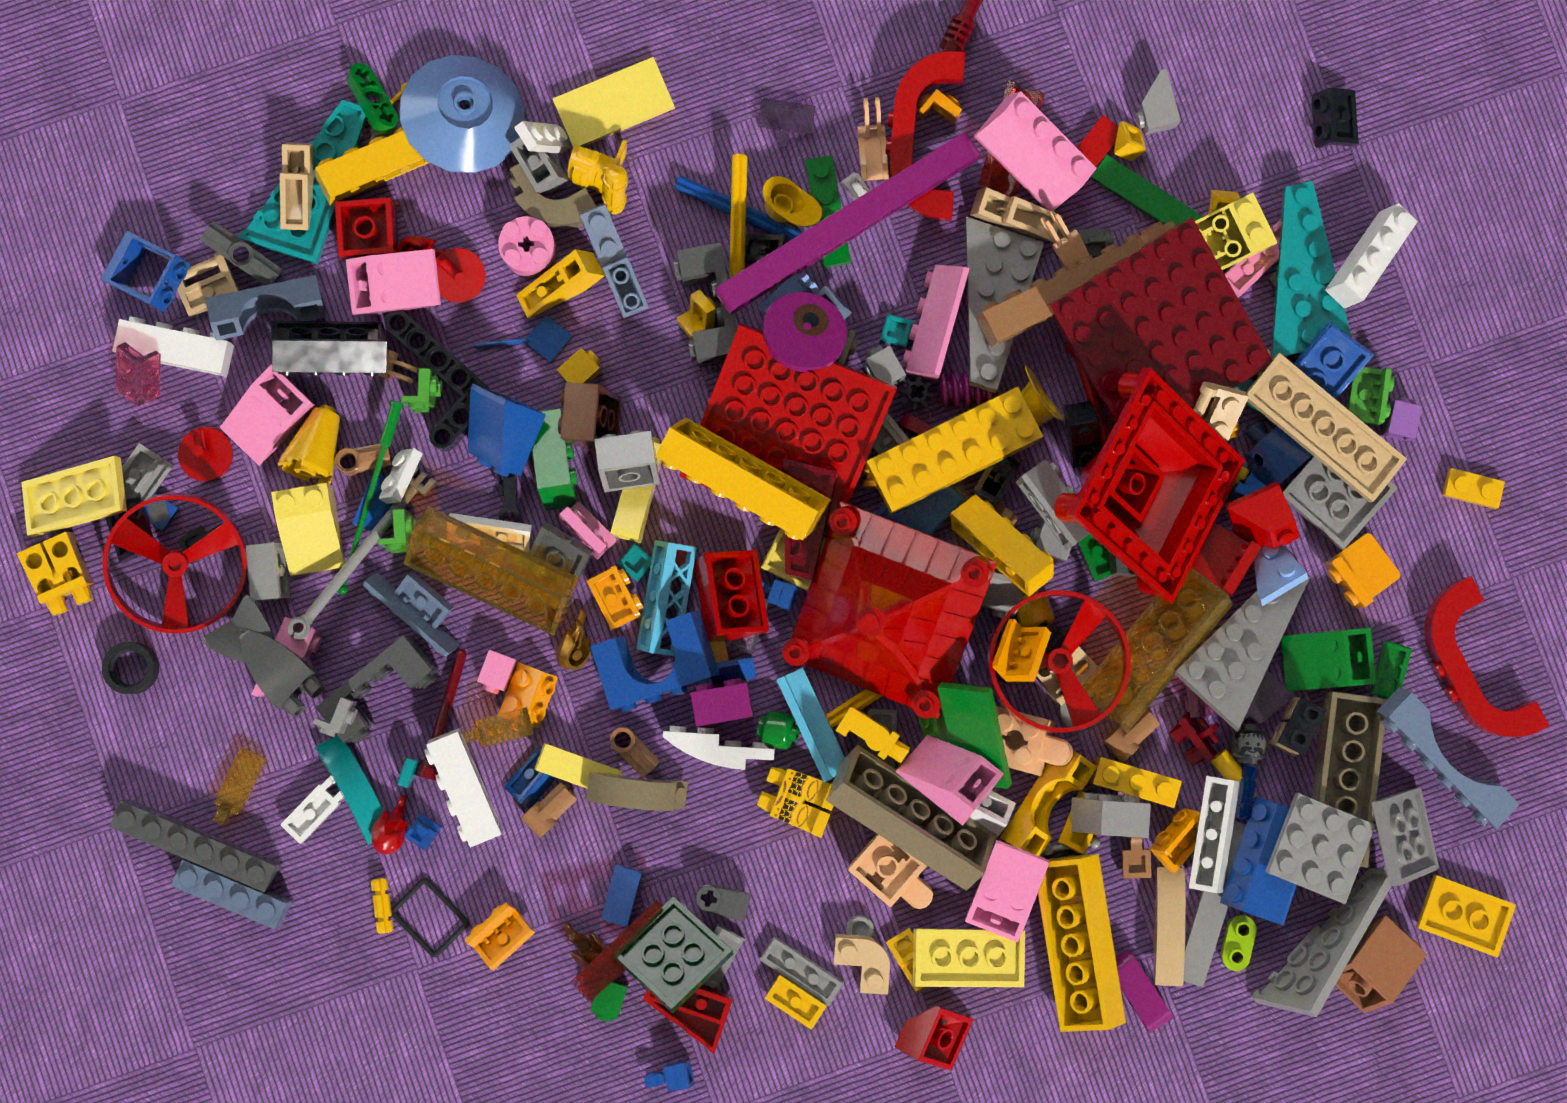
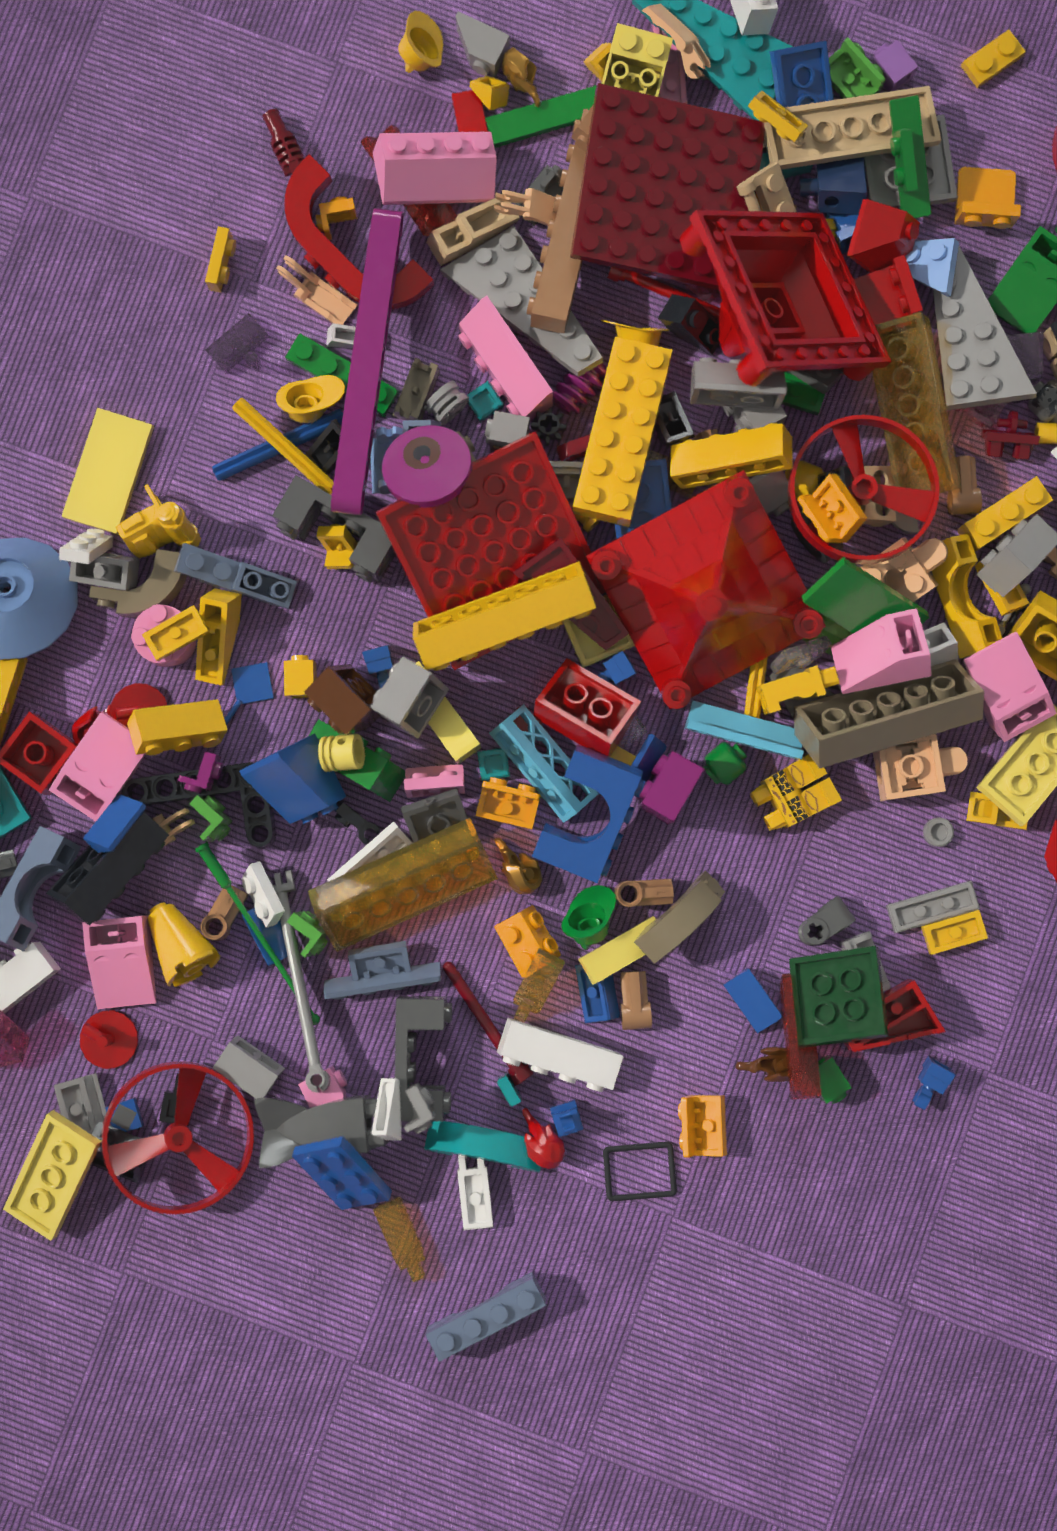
camera: 45 degrees left, 0 degrees up
(57, 571) = (101, 1241): yellow hips -> none
(108, 668) = (219, 1266): black tyre -> none
(195, 845) = (422, 1313): dark grey brick -> none
(247, 702) = (342, 1173): none -> blue plate
(309, 528) = (242, 1005): light yellow slope -> none
(317, 697) = (387, 1114): none -> white piece
(360, 327) = (114, 823): none -> blue slope
(382, 905) = (598, 1201): yellow axle -> none
(454, 362) = (209, 770): none -> magenta bracket
(468, 312) = (177, 727): none -> yellow brick
(497, 672) = (488, 950): bright pink brick -> none
(533, 254) = (175, 633): none -> yellow plate
(547, 446) = (341, 752): none -> light yellow piece
(582, 724) = (589, 915): none -> green piece
(639, 415) = (378, 662): none -> blue piece
(705, 747) = (690, 831): white slope -> none
(827, 57) = (223, 248): none -> yellow plate
(860, 276) = (416, 391): none -> dark tan hinge
(868, 954) = (968, 842): tan plate -> none
(870, 305) = (446, 402): none -> light grey wheel
(901, 718) = (800, 655): none -> clear plate
(1121, 61) = (421, 43): none -> yellow piece
(1162, 152) = (520, 73): none -> pearl gold piece
(1282, 367) = (770, 111): none -> yellow plate
(1286, 247) = (684, 39): none -> light nougat arm
(1339, 489) = (909, 155): none -> green bracket

